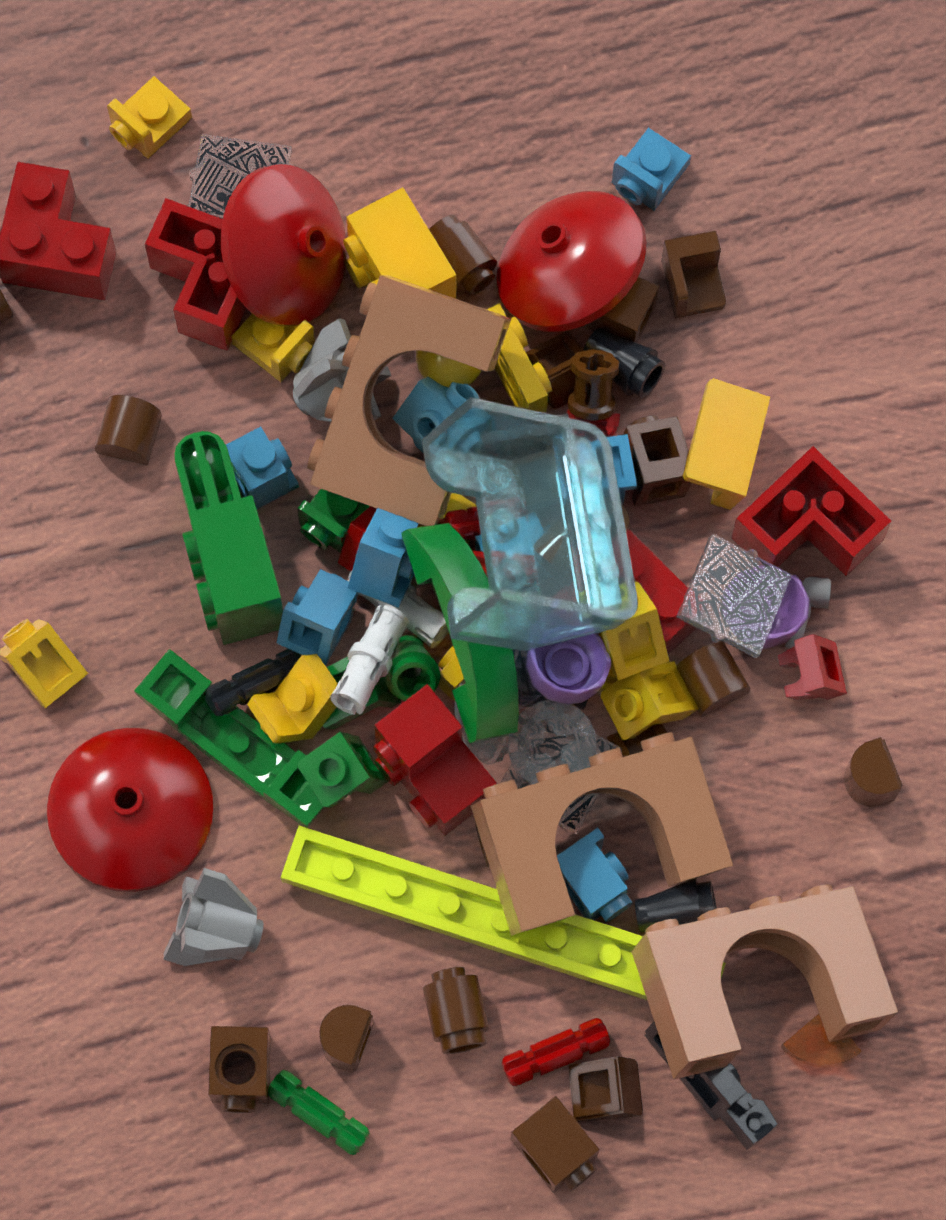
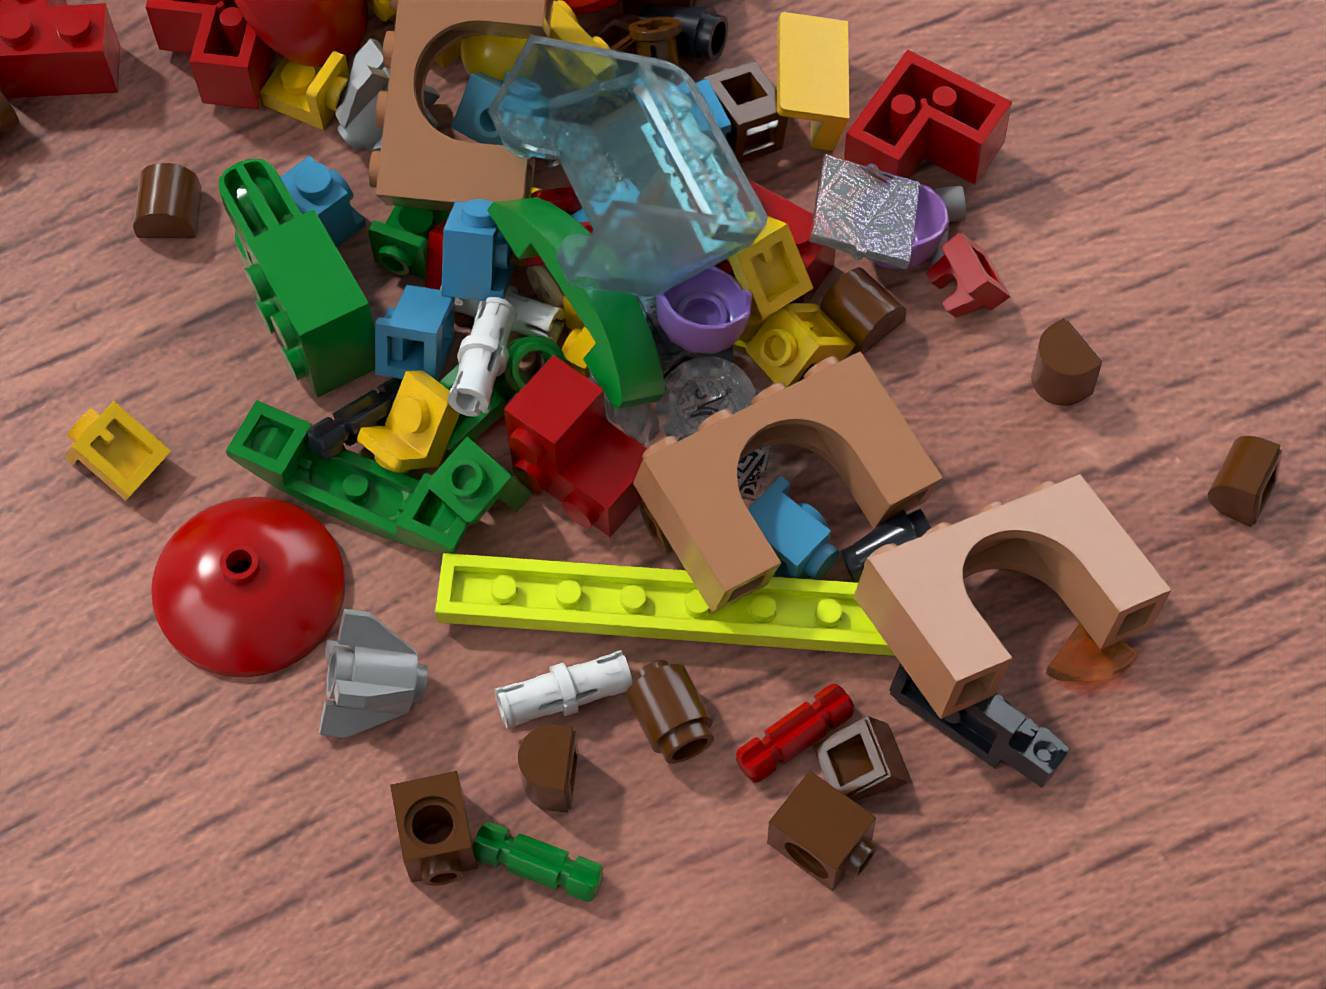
camera: 10 degrees left, 10 degrees down
(373, 969) = (563, 689): none -> white pin

